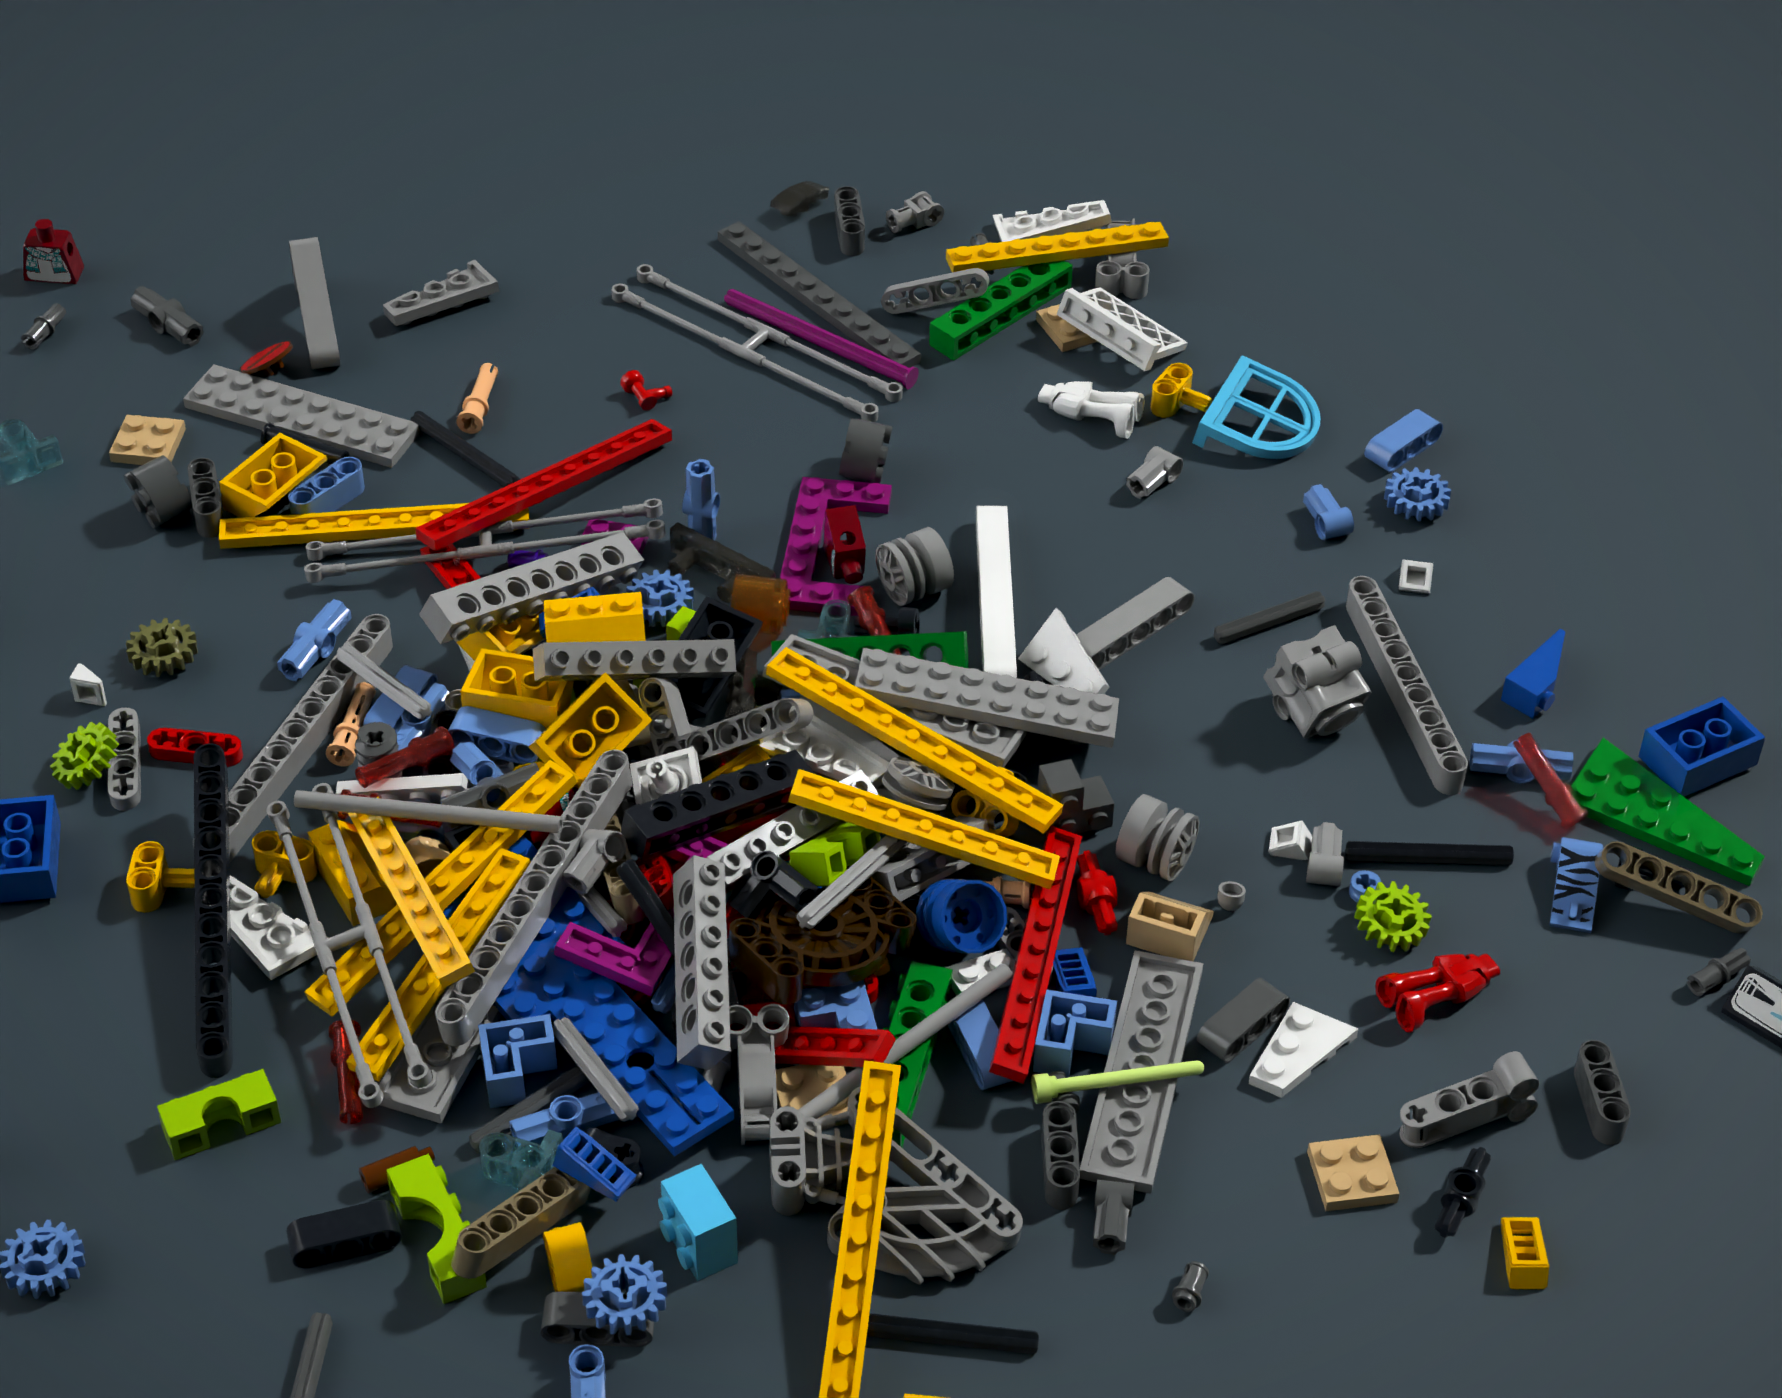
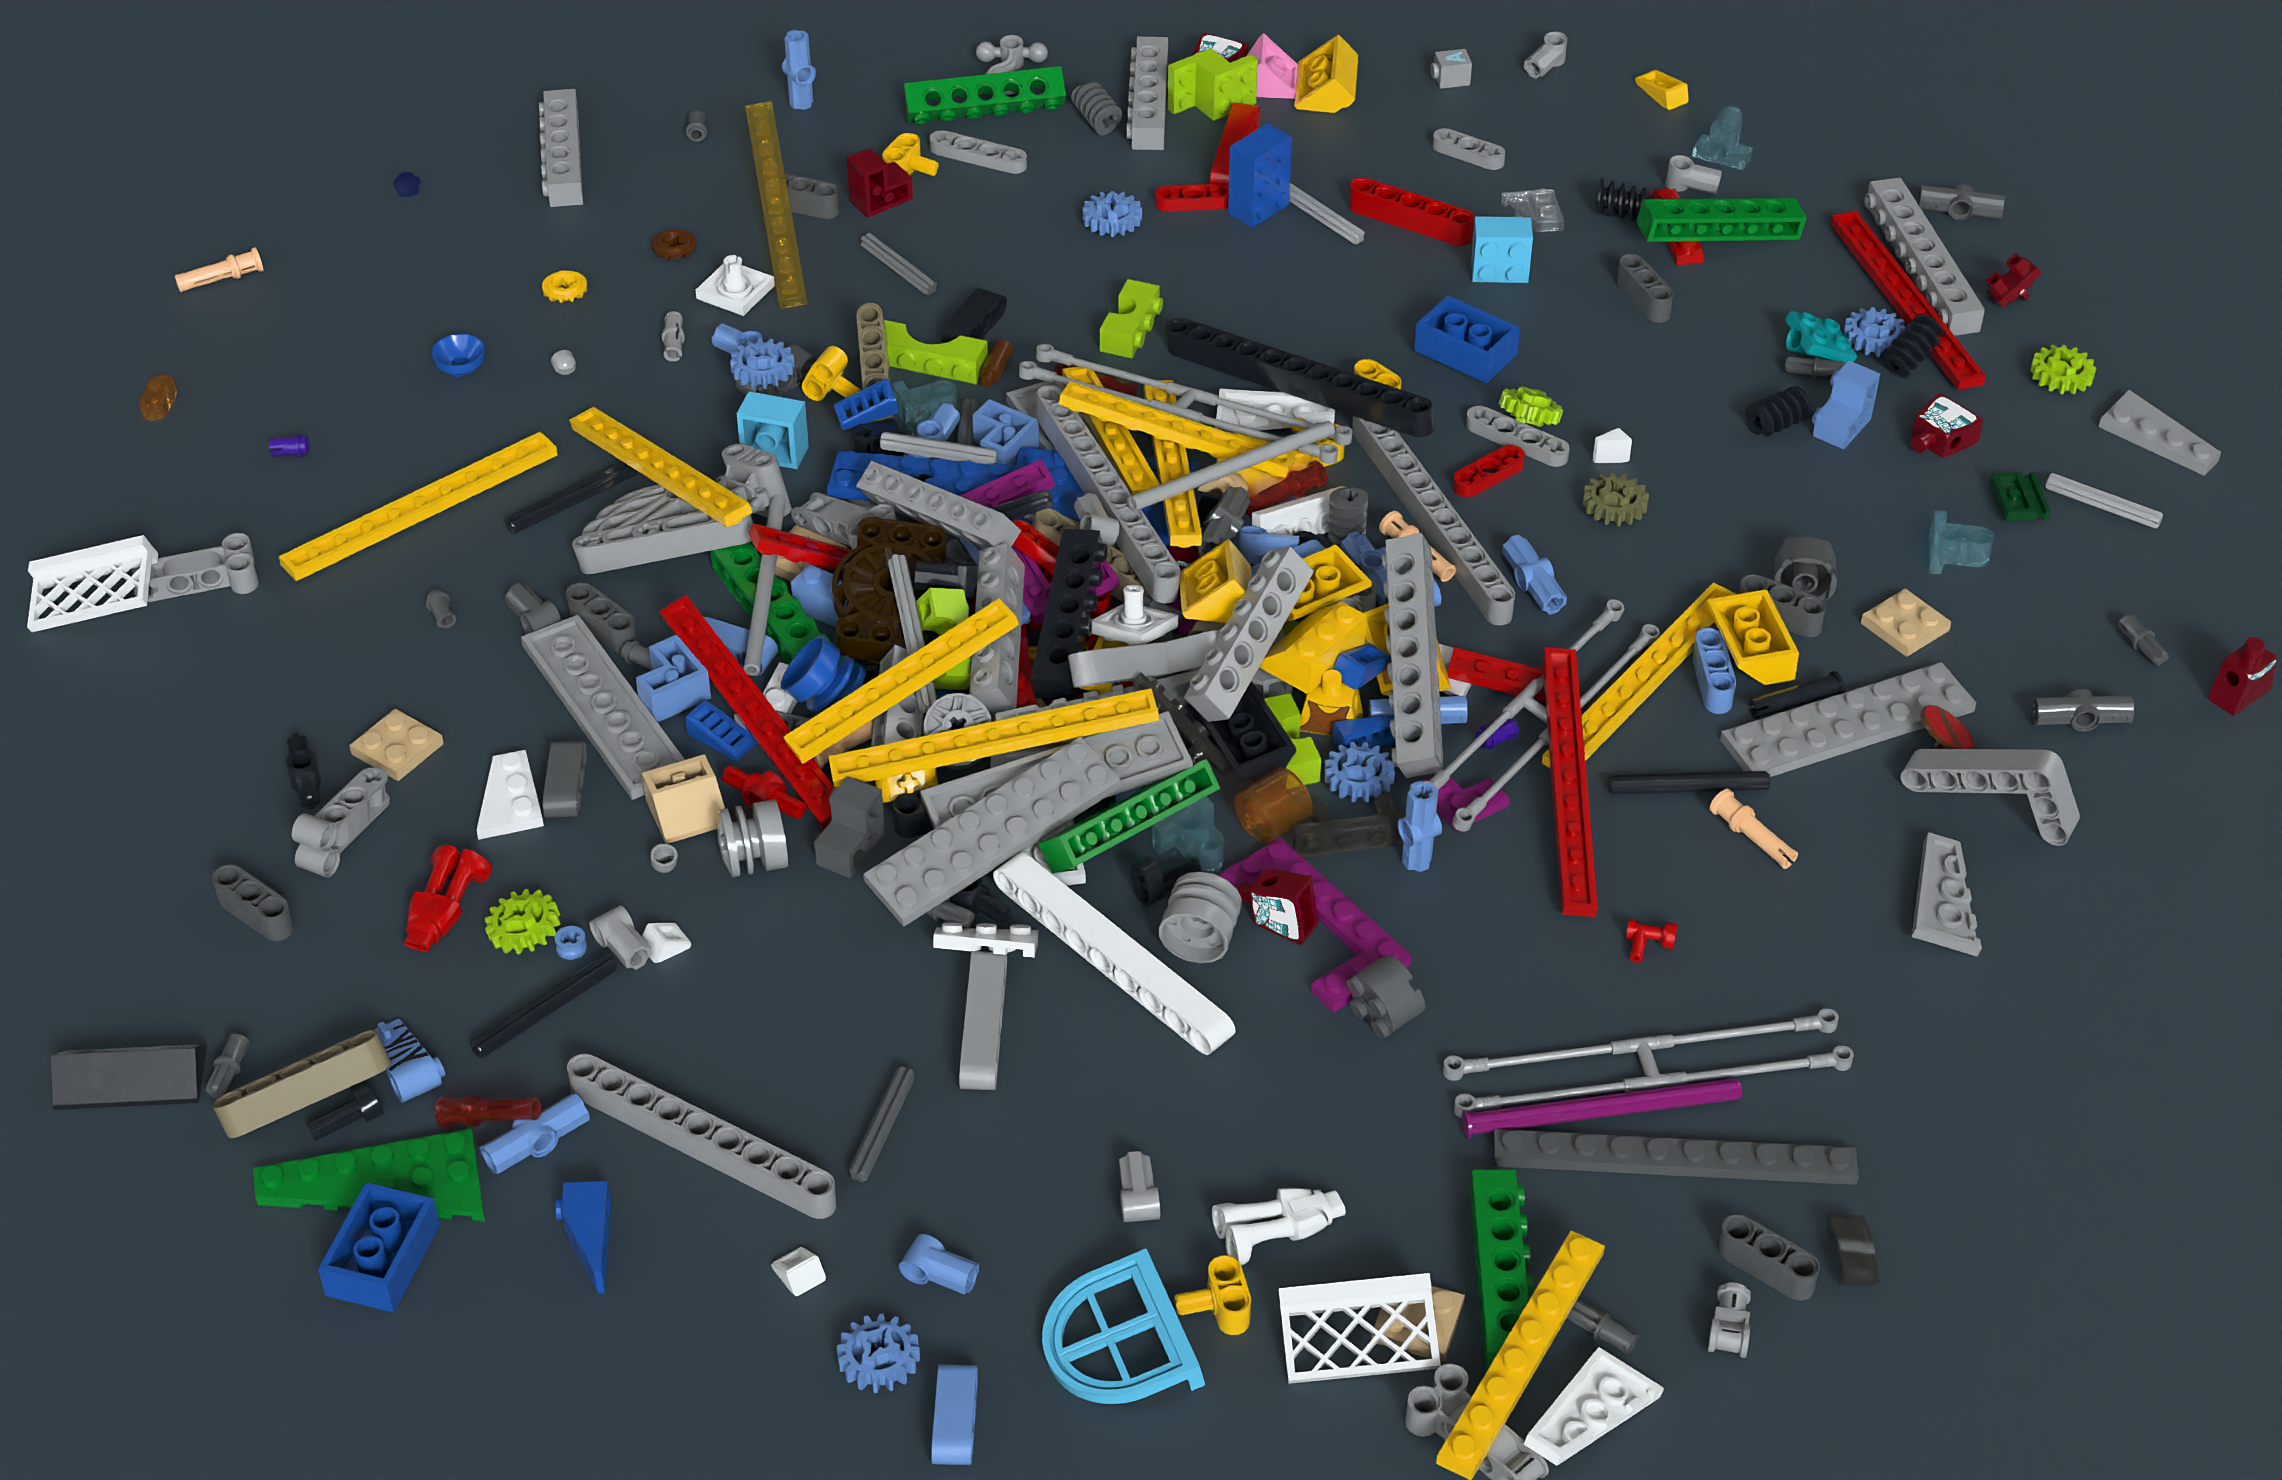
camera: 135 degrees right, 0 degrees up
(384, 681) = (1440, 553): light grey axle -> none
(418, 752) = (1318, 520): clear red pin -> none
(870, 615) = (1171, 852): clear red pin -> none
(936, 295) = (1561, 1211): light grey beam -> none
(1048, 1087) = (648, 634): yellowish green piece -> none
(1318, 683) = (755, 1040): light grey piece -> none
(1524, 1255) = (228, 751): yellow slope -> none

